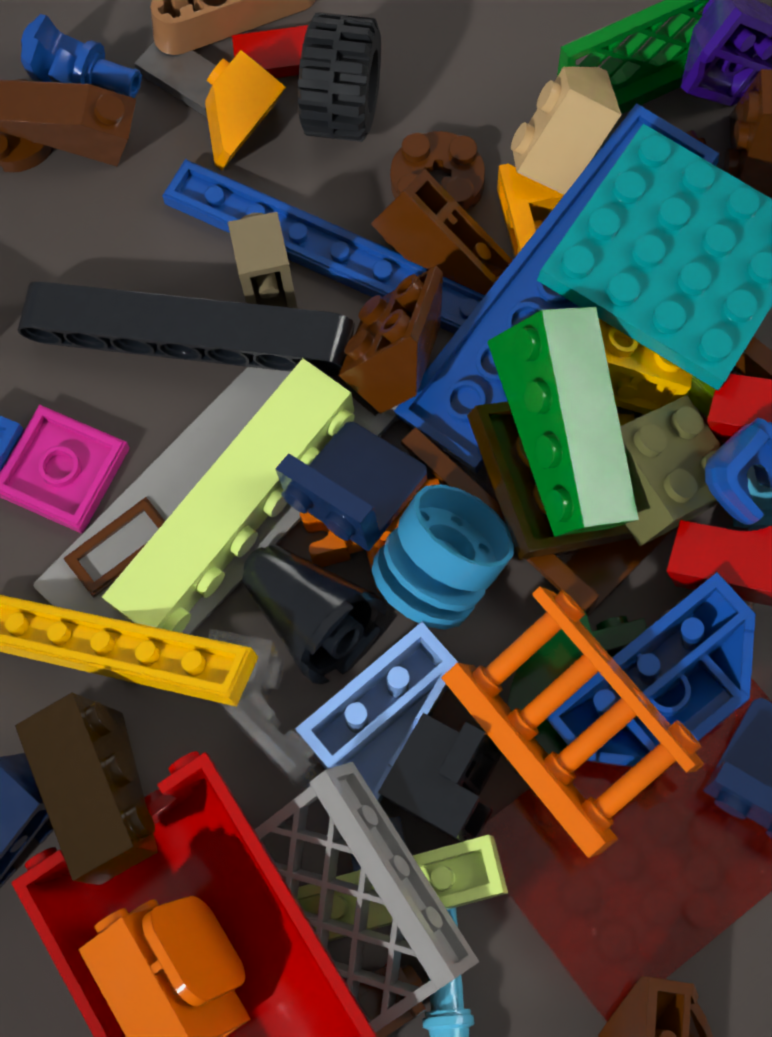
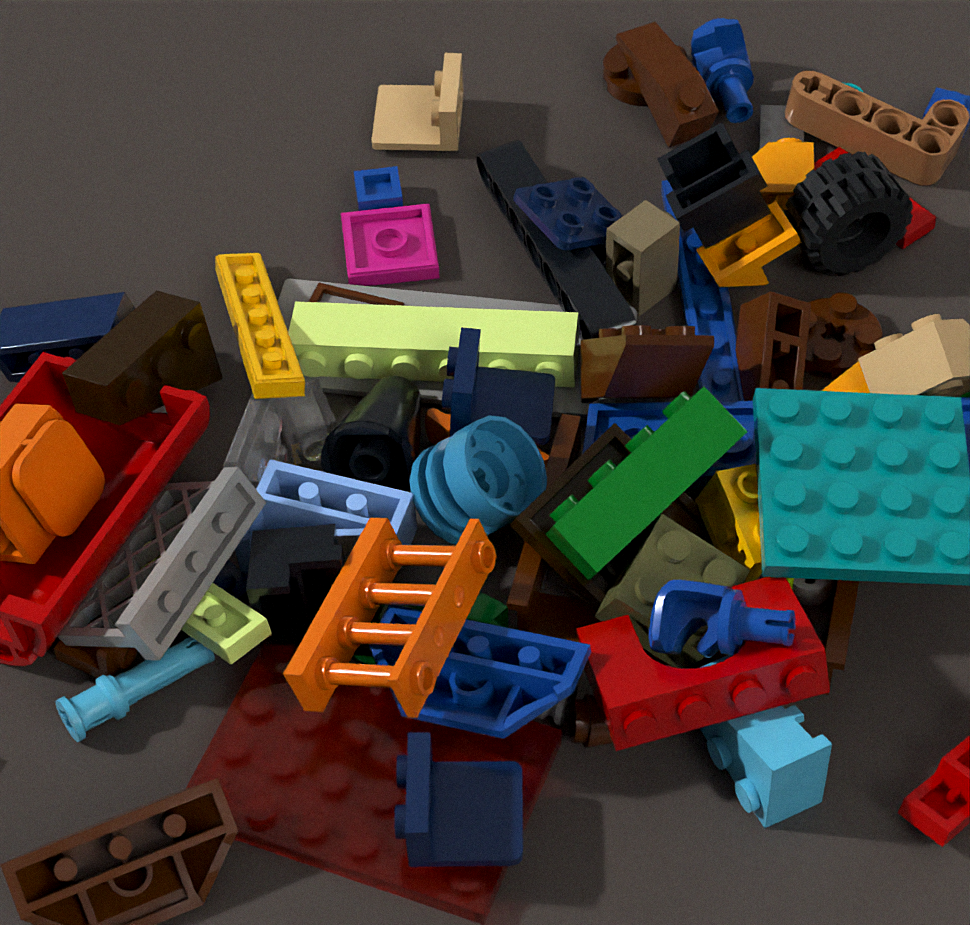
camera: 55 degrees right, 20 degrees down
(179, 291) = (570, 213): none -> dark blue bracket
(245, 155) = (714, 186): none -> black plate
(311, 174) = (741, 256): none -> light orange slope

